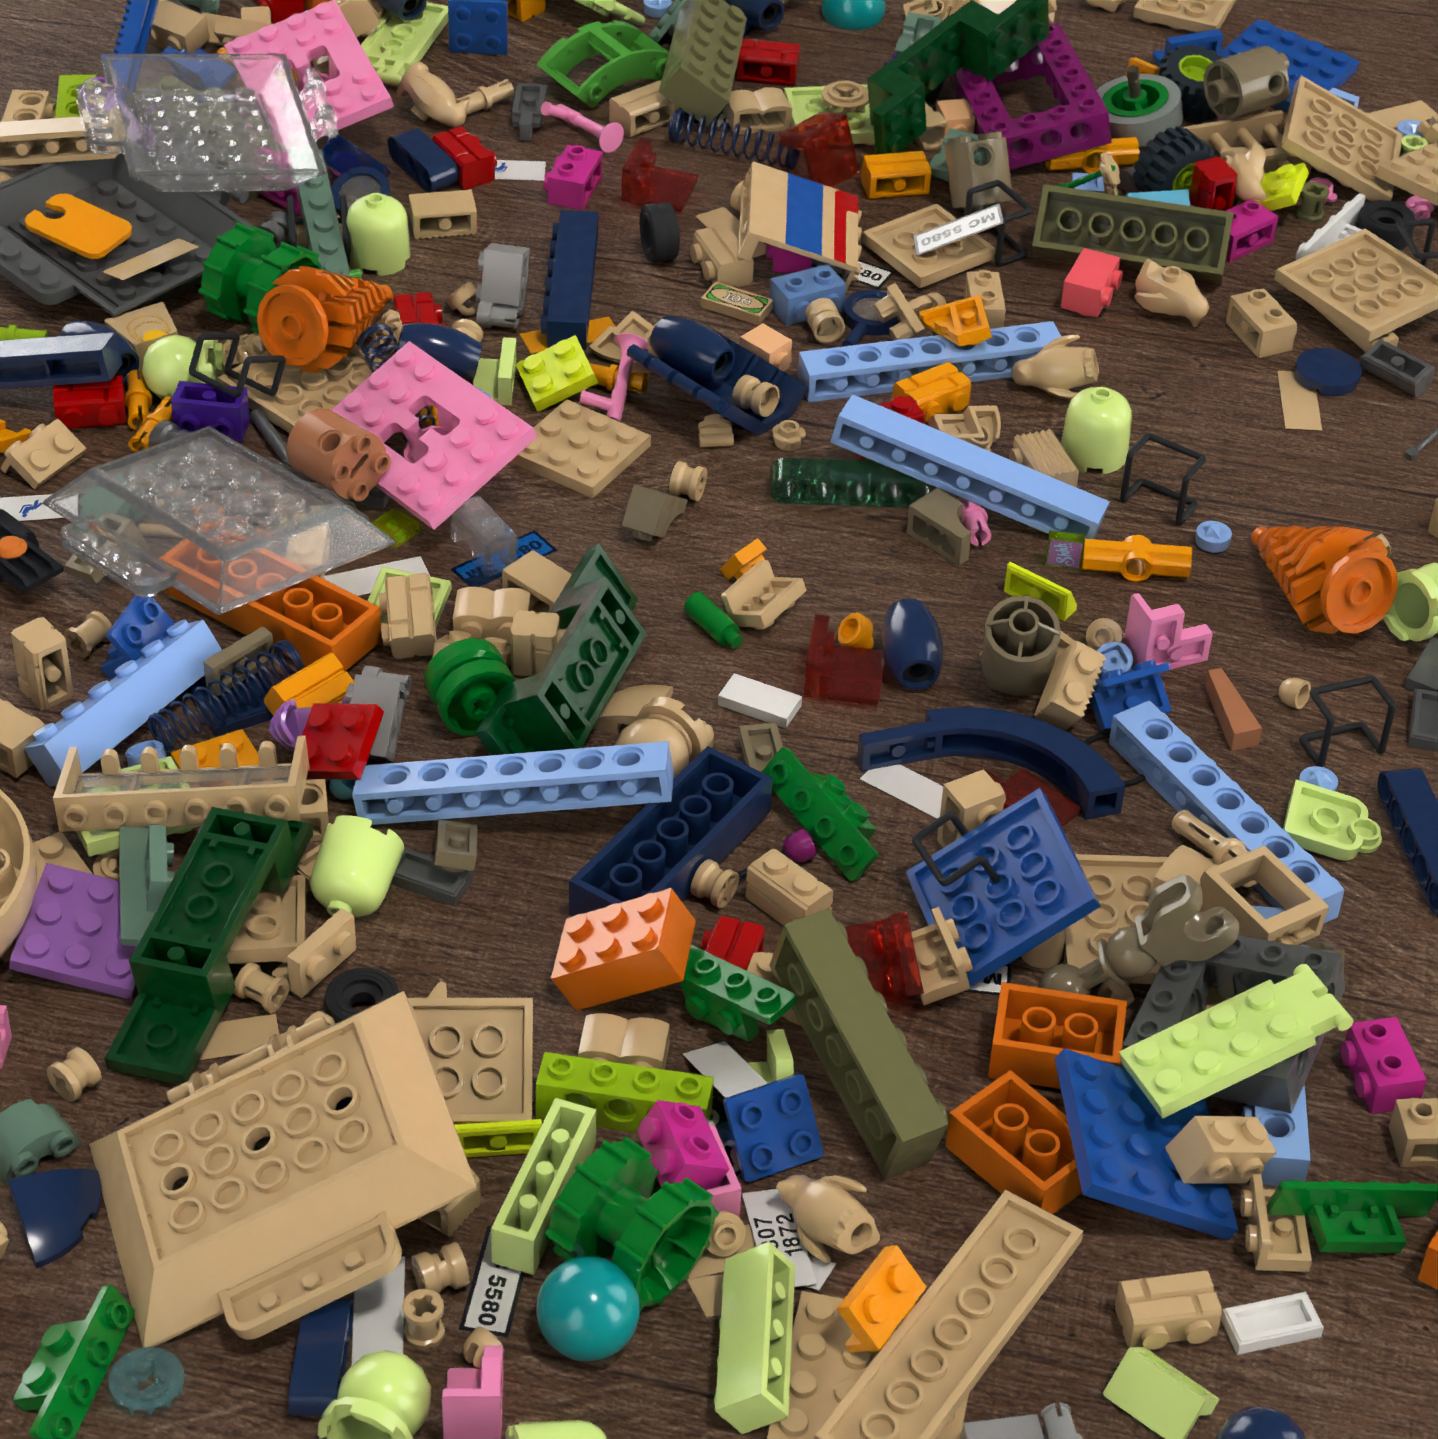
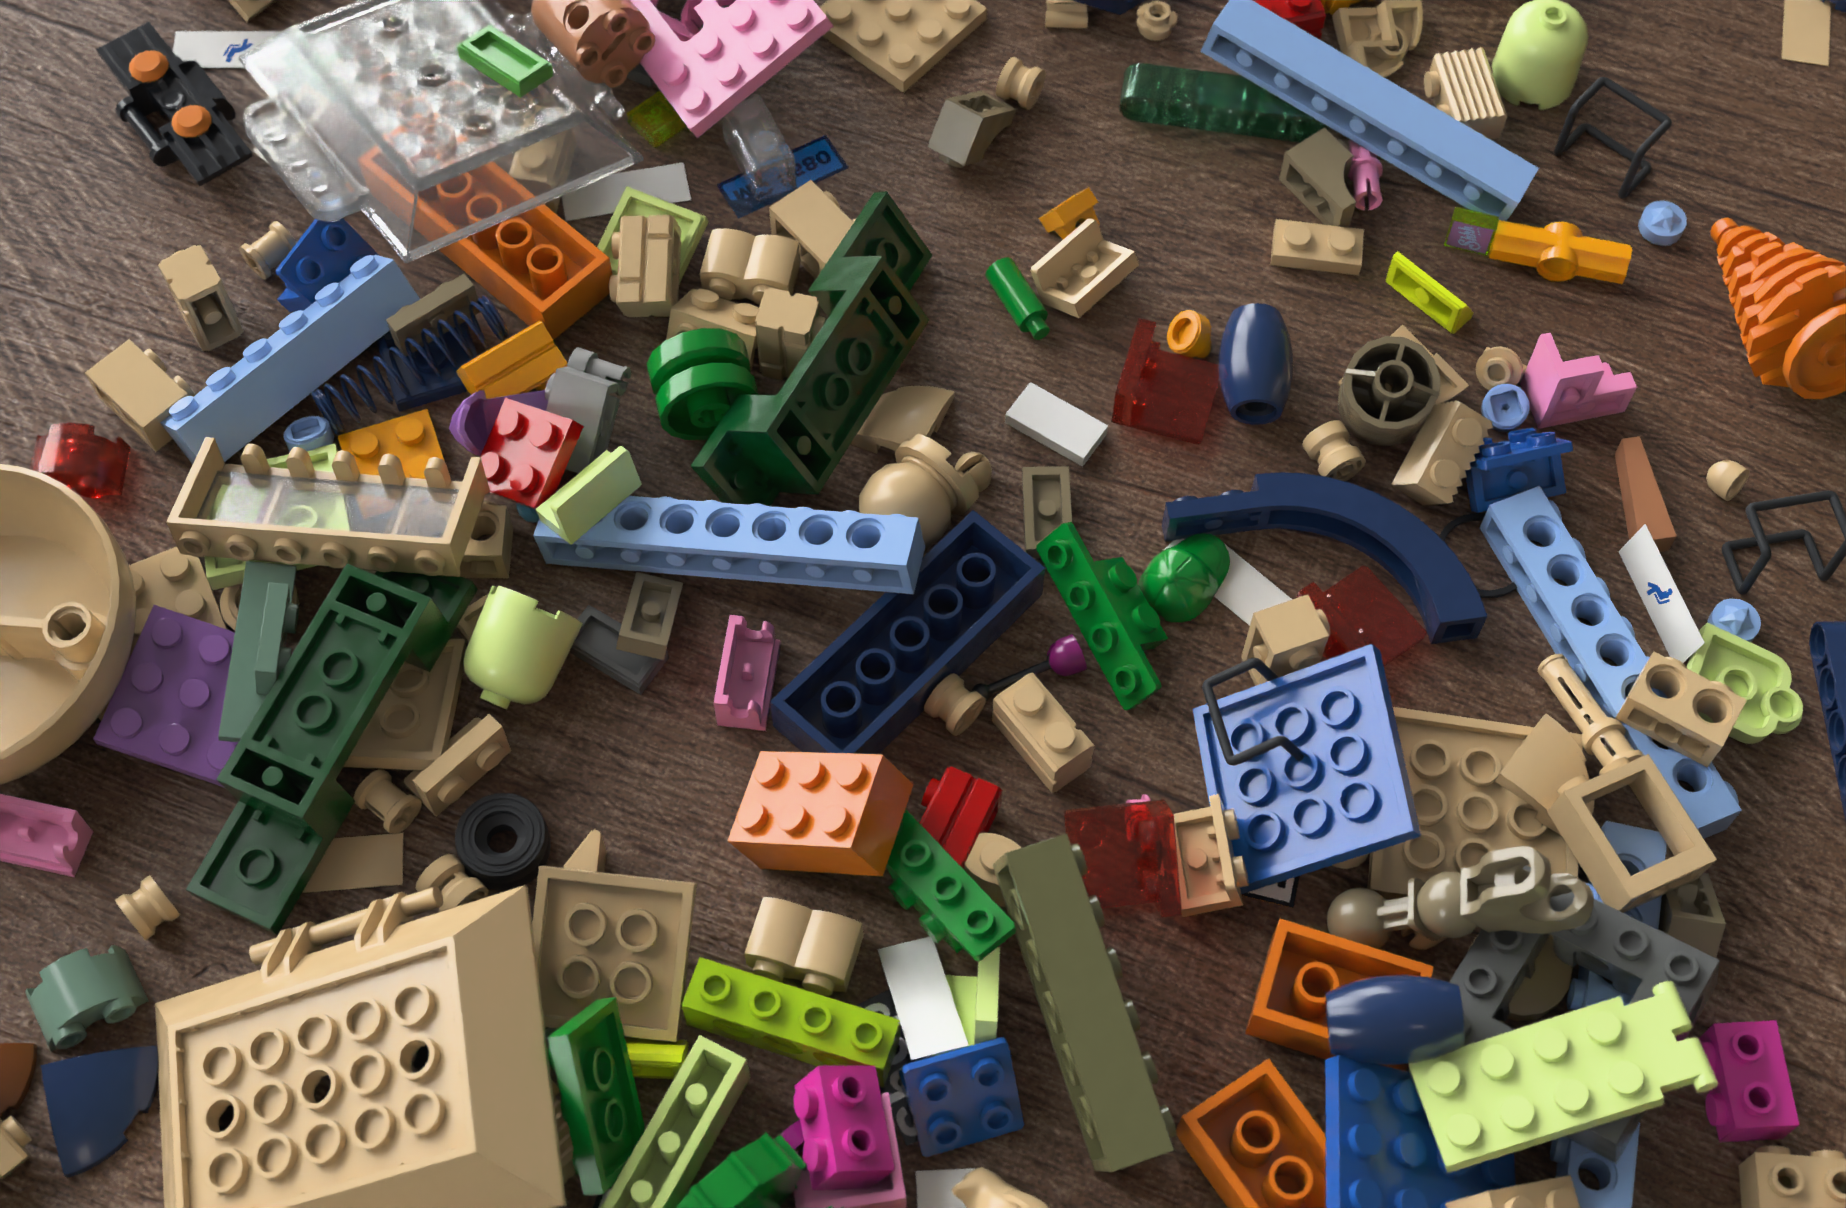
camera: 10 degrees right, 20 degrees up
(276, 475) = (505, 60): none -> bright green tile
(397, 758) = (590, 495): none -> yellowish green panel
(481, 1135) = (597, 1093): none -> green plate
(542, 881) = (746, 675): none -> bright pink hinge
(883, 789) = (1185, 577): none -> green piece
(945, 572) = (1317, 247): none -> tan plate
(980, 692) = (1333, 451): none -> tan wheel
(1103, 1020) = (1395, 1019): none -> dark blue piece
(1257, 768) = (1661, 596): none -> white sticker
(1284, 823) = (1676, 718): none -> tan brick

